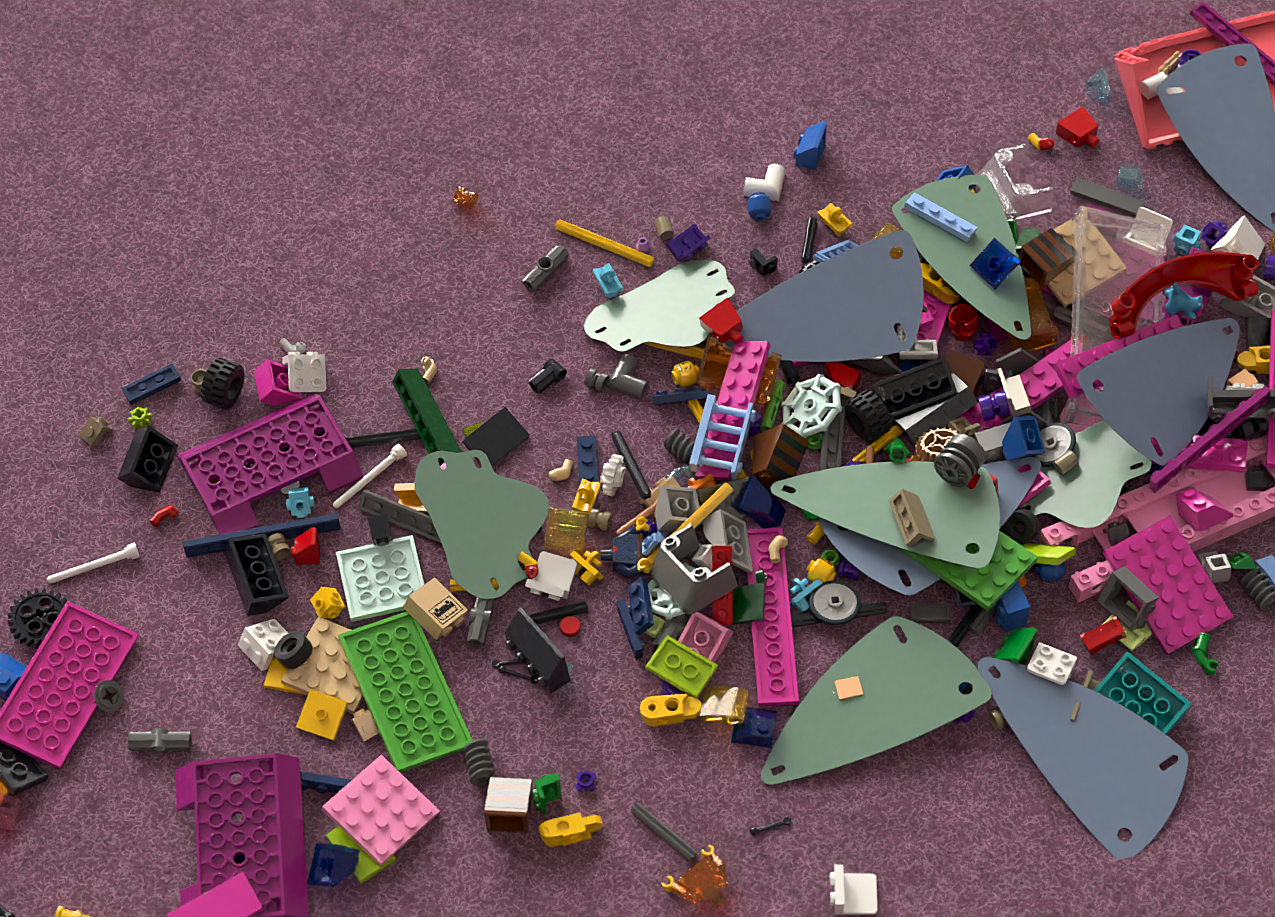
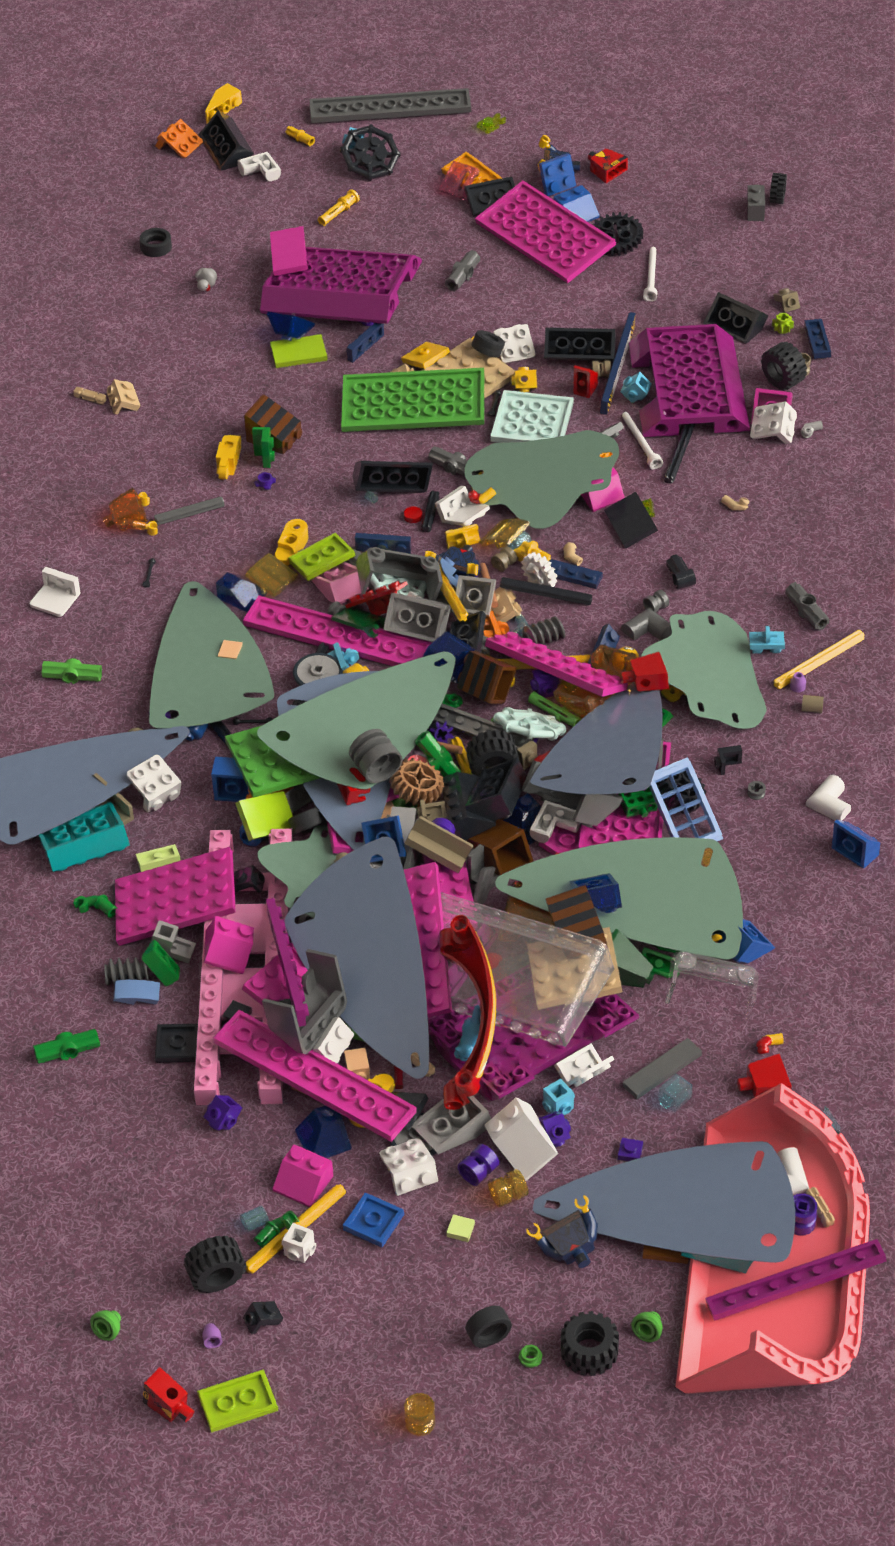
camera: 115 degrees right, 10 degrees down
(116, 700) = (513, 249): dark grey gear -> none
(162, 513) = (678, 318): red arm -> none
(380, 530) = (572, 418): black slope -> none
(380, 810) = (316, 360): bright pink plate -> none
(424, 412) = (679, 482): dark green brick -> none
(435, 609) = (474, 430): tan brick -> none
(479, 762) = (321, 424): dark grey piece -> none
(641, 605) = (379, 541): dark blue plate -> none
(687, 242) = (783, 713): dark purple bracket -> none
(703, 441) = (525, 624): light blue fence -> none
(741, 628) = (335, 608): none -> dark grey bush
(759, 206) = (800, 779): blue head -> none
(776, 544) = (396, 650): tan arm -> none
(781, 238) = (756, 785): none -> dark grey bush
(809, 240) = (740, 806): black axle -> none
(835, 219) = (750, 827): yellow hips -> none
(911, 517) = (341, 711): dark tan panel -> none
(940, 217) = (684, 876): light blue plate -> none
(945, 821) = (71, 671): none -> bright green piece
(1017, 646) = (187, 769): green slope -> none
(1103, 636) = (160, 837): red hinge -> none
(1111, 601) = (173, 849): dark grey window -> none
(1194, 189) = (630, 1149): none -> dark purple plate

